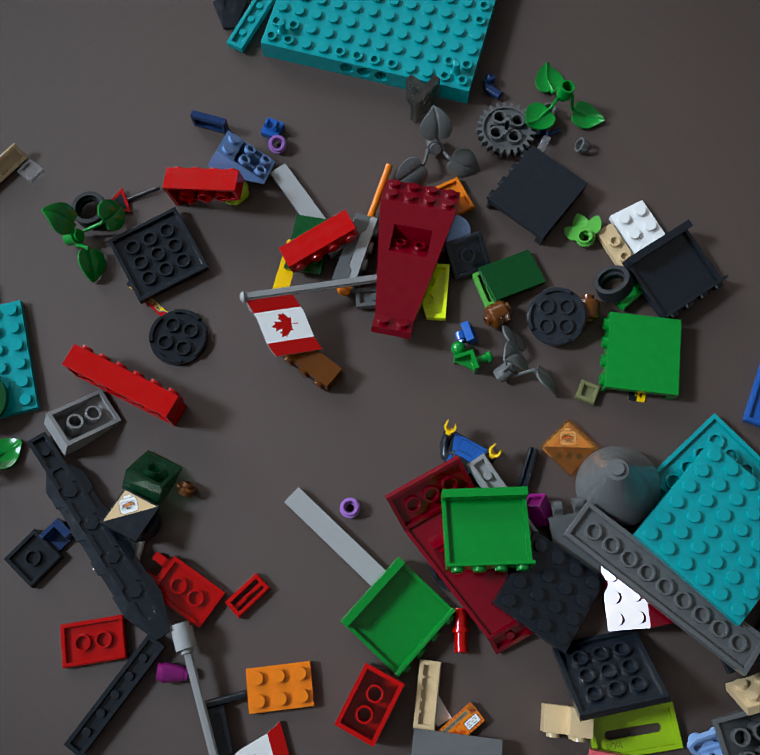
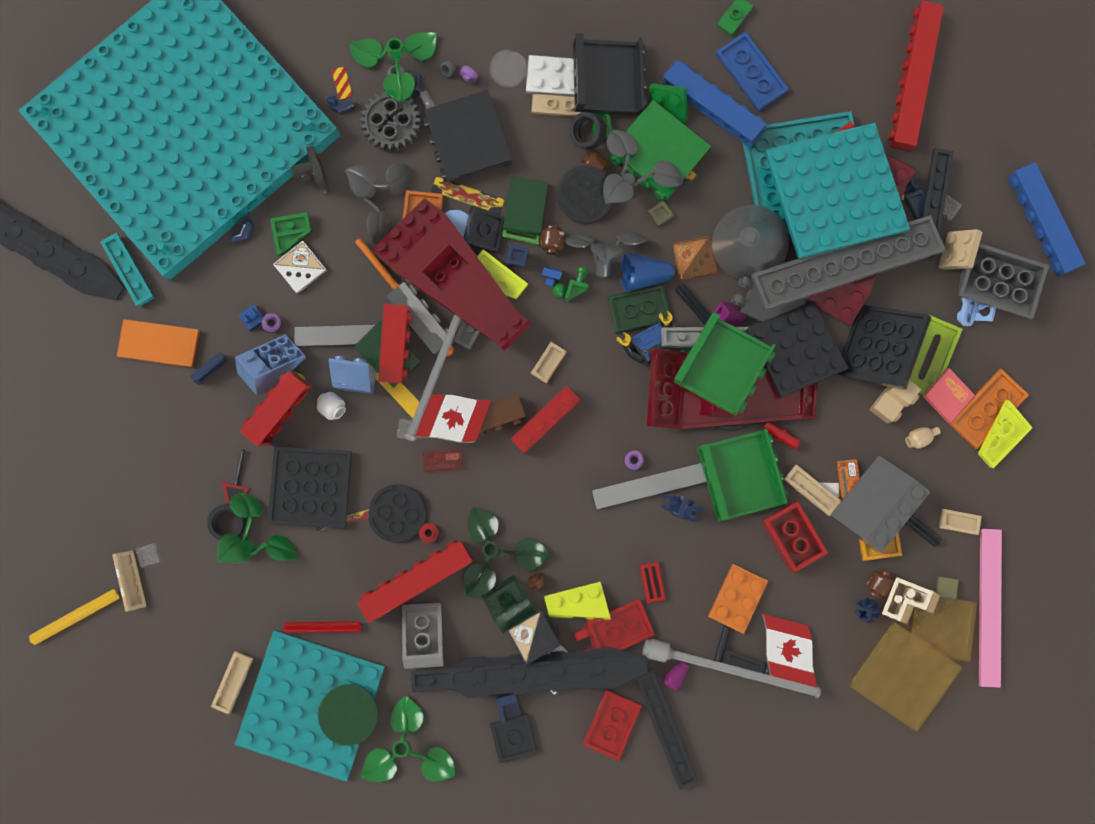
camera: 60 degrees left, 10 degrees up
(44, 336) = (322, 627): none -> red axle
(161, 439) = (482, 526): none -> dark green plant
(178, 377) = (433, 528): none -> red plate
(189, 539) = (579, 602): none -> neon yellow wing
(207, 77) = (158, 343): none -> orange tile
(236, 228) = (330, 405): none -> white head
(247, 345) = (442, 460): none -> clear red tile
(271, 225) = (352, 375): none -> medium blue slope
(330, 577) = (682, 507): none -> dark blue pin
(335, 407) = (545, 420): none -> red brick
(337, 138) = (300, 267): none -> tile
(338, 82) = (245, 232): none -> dark blue arm
(362, 112) = (289, 230): none -> green wing
(389, 380) = (548, 362): none -> tan tile
(462, 294) = (517, 256): none -> dark blue panel
(488, 228) = (468, 195): none -> sticker
(489, 425) = (638, 308): none -> dark green tile
(510, 78) = (342, 83): none -> sticker
(525, 409) = (644, 271): none -> blue cone
(578, 335) = (620, 188): none -> dark grey plant
(583, 228) = (521, 119): bright green plate -> none
(589, 164) = (469, 74): none -> medium lavender tile
(618, 192) = (508, 68): none -> clear tile
(693, 336) = (671, 99): none -> green wing
(718, 375) = (716, 105): none -> blue brick

